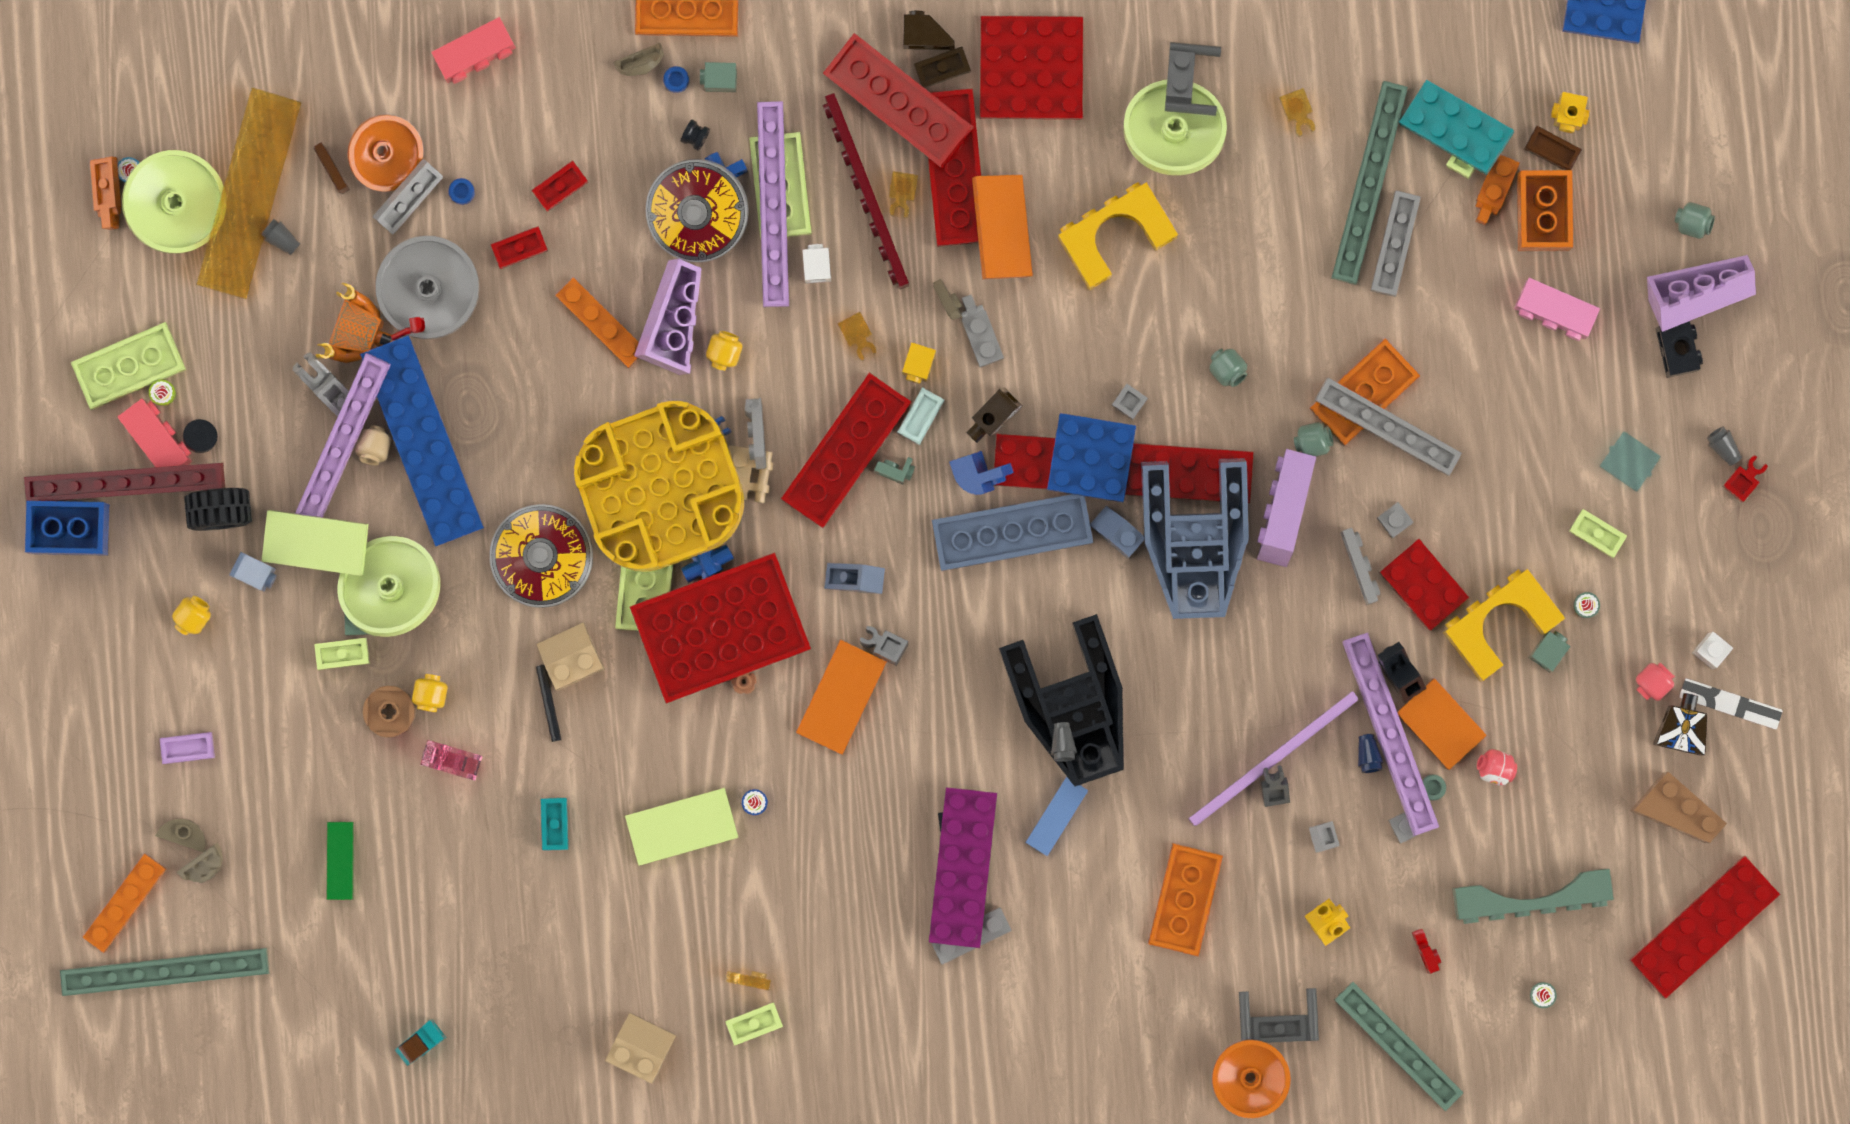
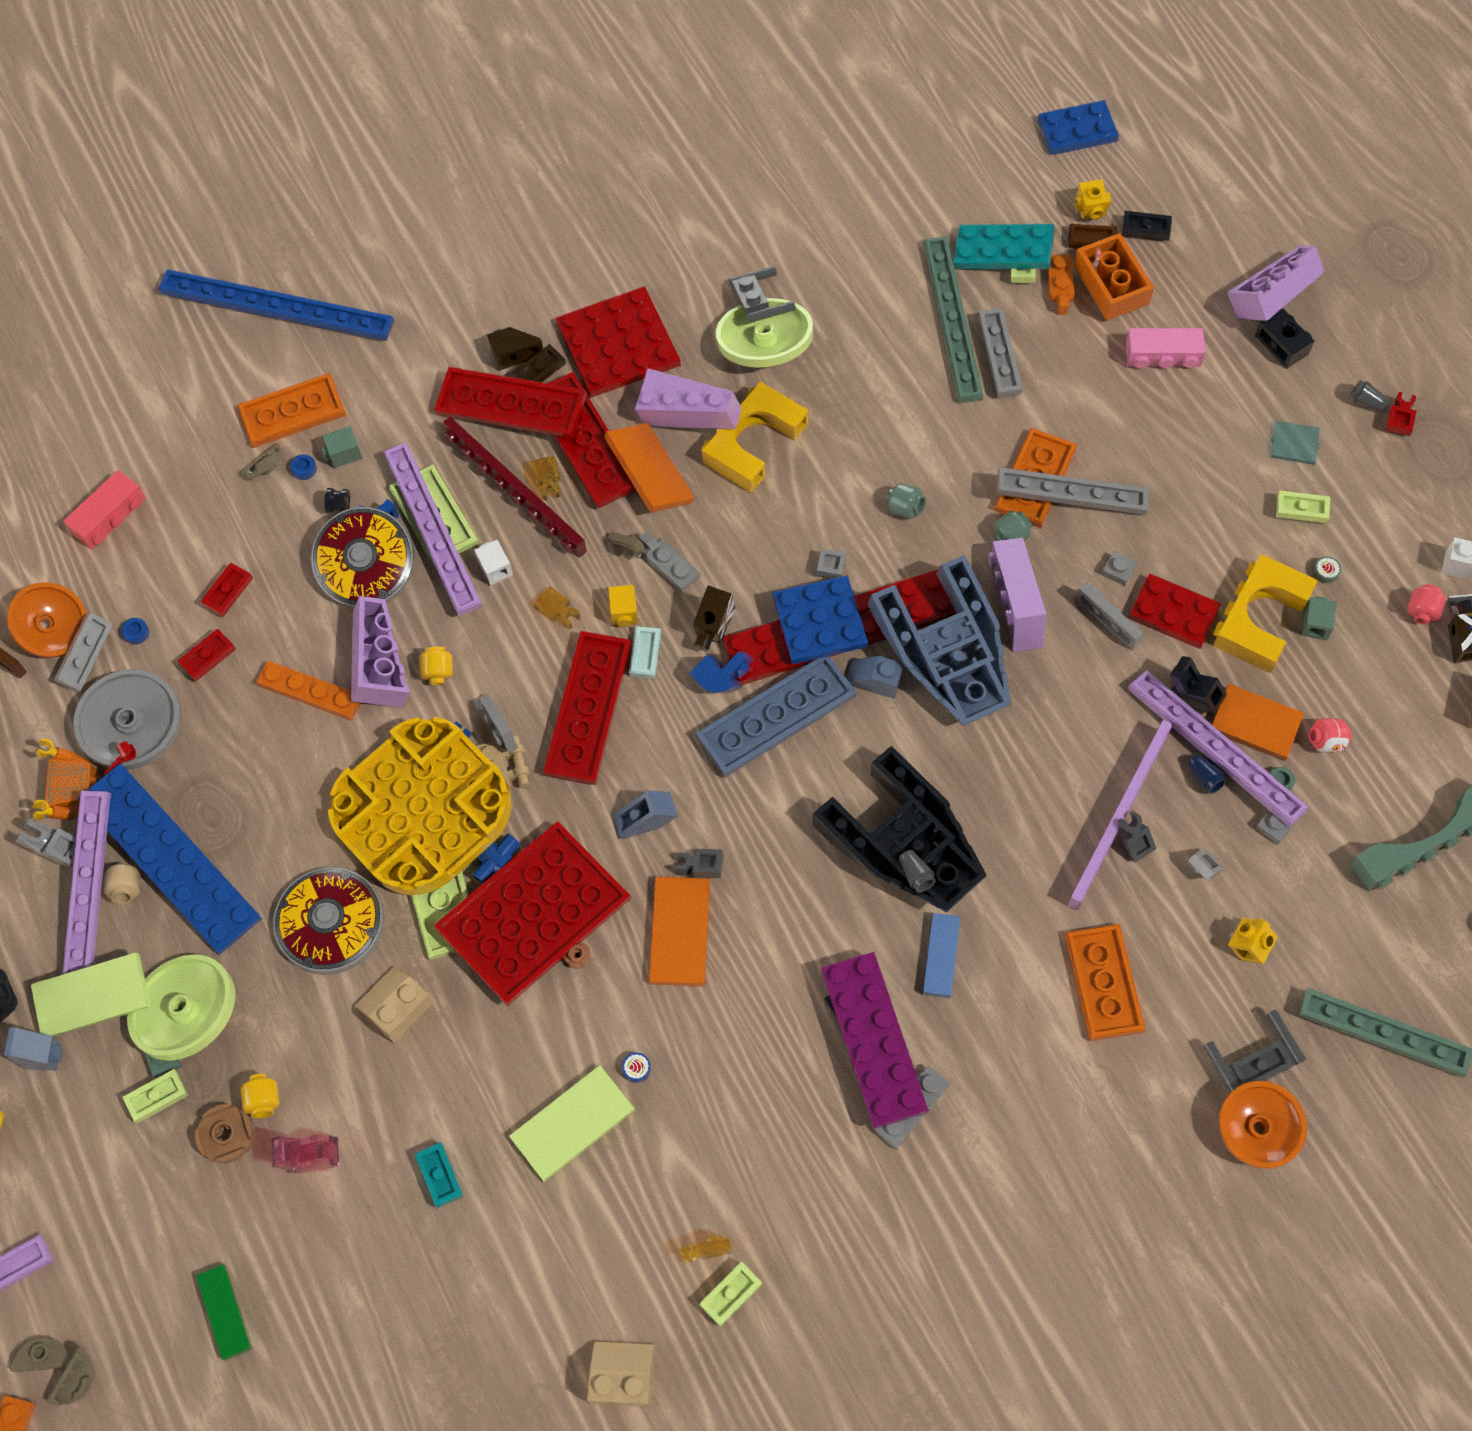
camera: 25 degrees left, 20 degrees down
(548, 703) = (388, 1058): black bar -> none
(890, 470) = (639, 707): sand green bracket -> none
(1059, 174) = (685, 403): none -> lavender wedge
(1296, 108) = (863, 284): clear yellow plate -> none
(1429, 957) = (1364, 933): red plate -> none
(1612, 161) = (1146, 225): none -> black plate
(1695, 220) = (1240, 240): sand green head -> none

